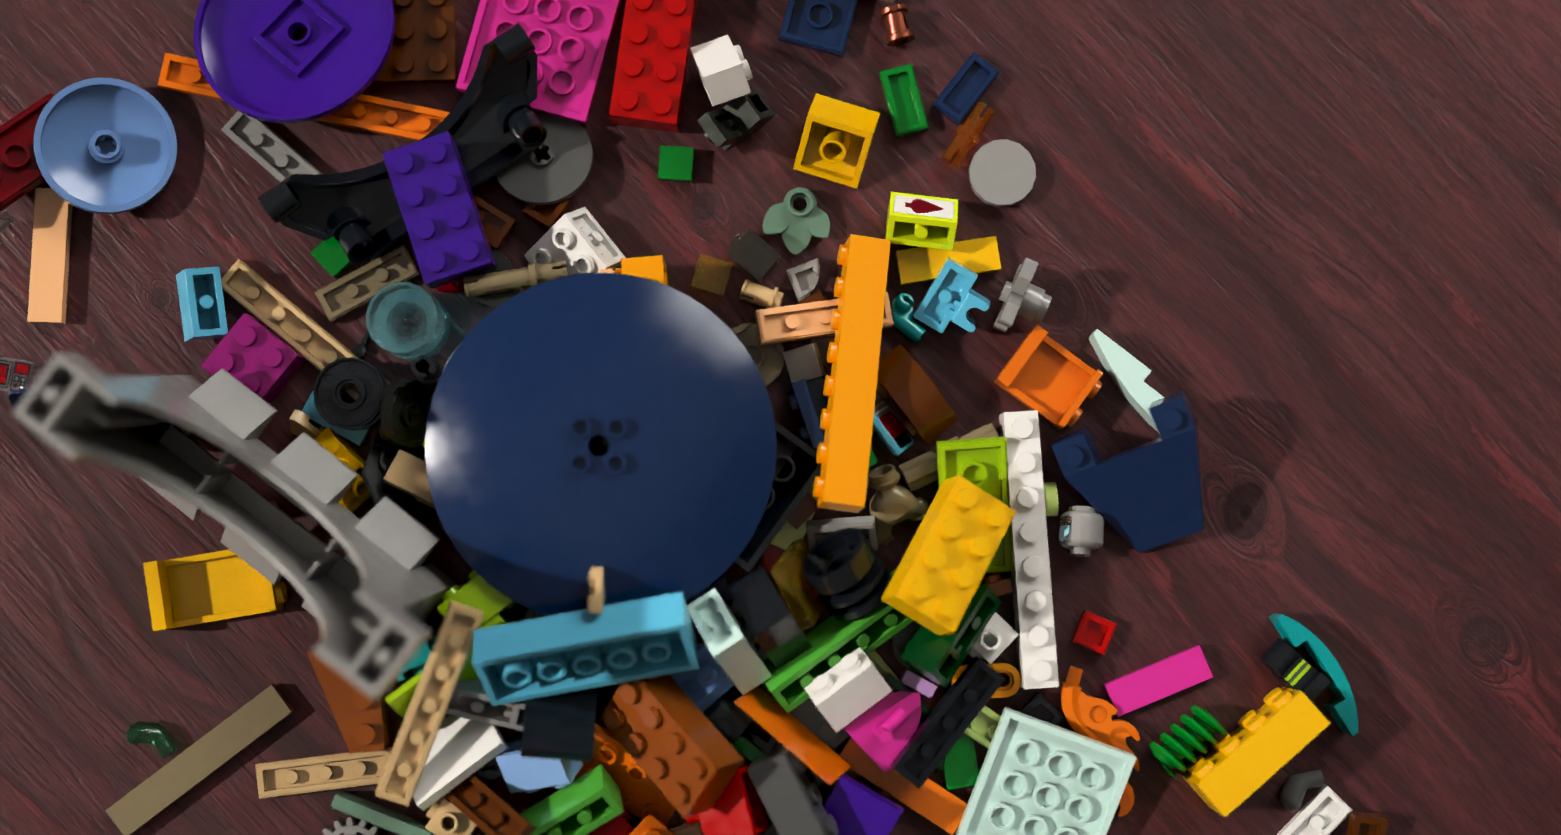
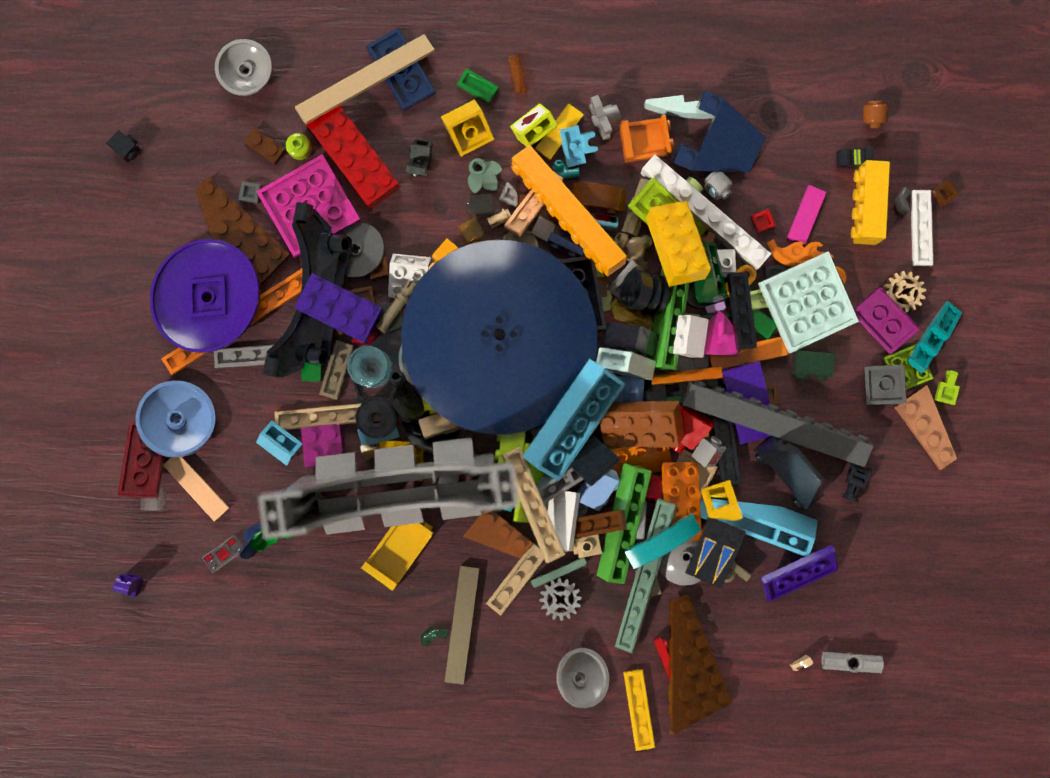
camera: 45 degrees left, 0 degrees up
(597, 590) = (552, 389): tan tile -> none
(676, 164) = (412, 200): green tile -> none
(722, 69) = (394, 143): white brick -> none
(897, 25) = (445, 58): copper bush -> none
(966, 88) = (497, 57): dark blue tile -> none
(1002, 173) = (545, 76): light grey tile -> none
(1186, 740) = (840, 226): green piece -> none
(1343, 705) = (887, 152): teal slope -> none
(1378, 640) = (875, 113): none -> dark orange head

